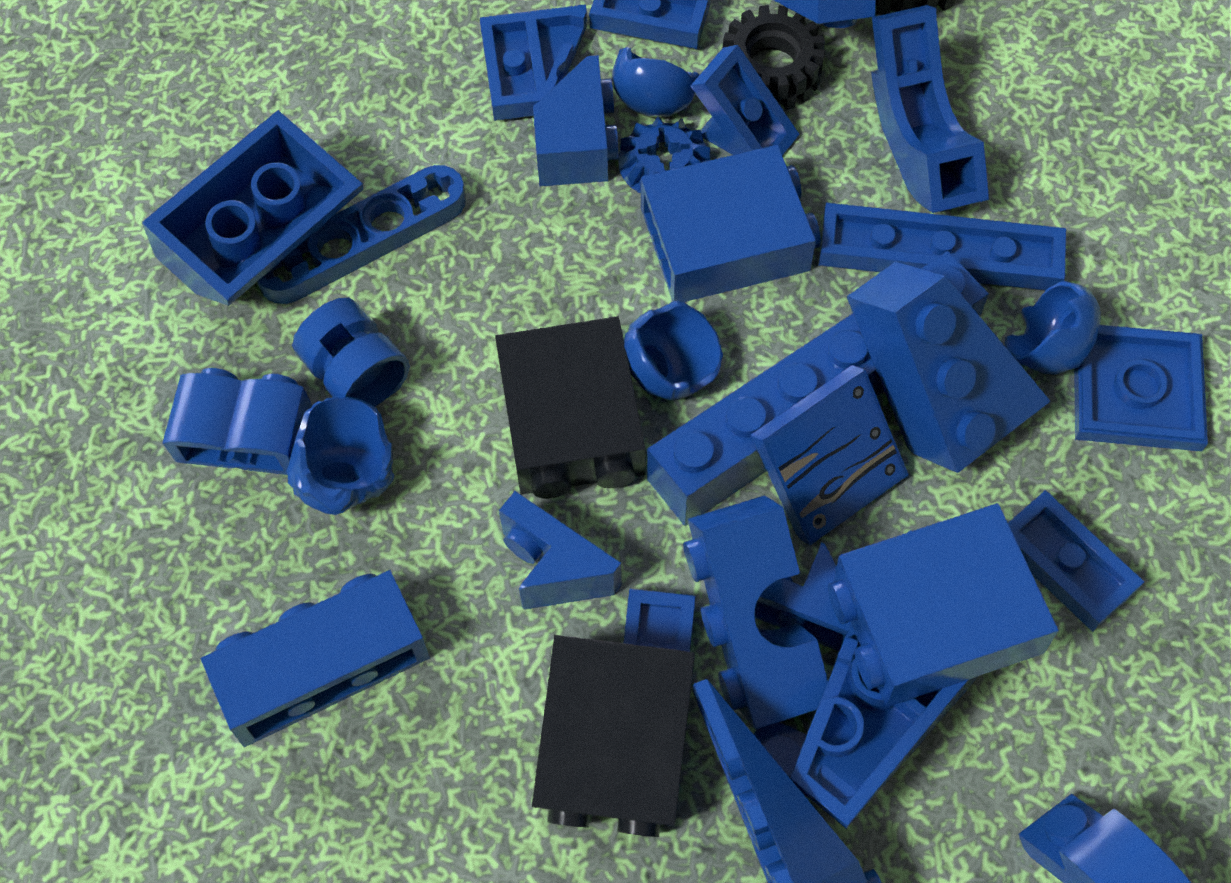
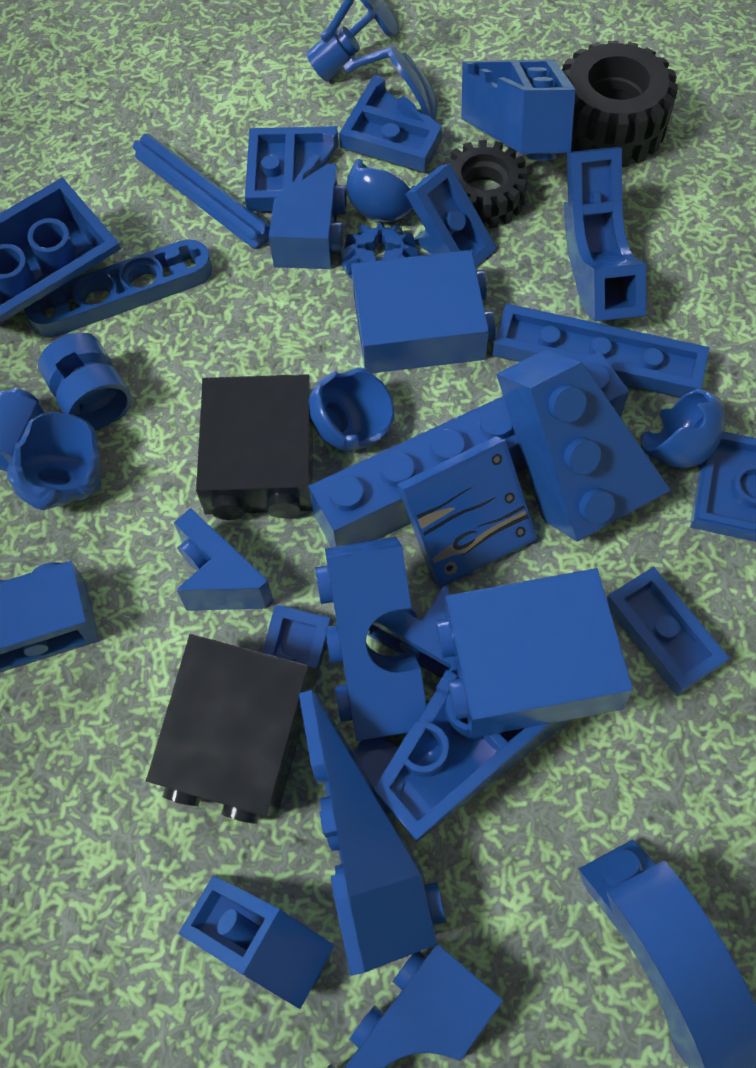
camera: 10 degrees right, 0 degrees up
(434, 101) = (202, 191): none -> blue axle

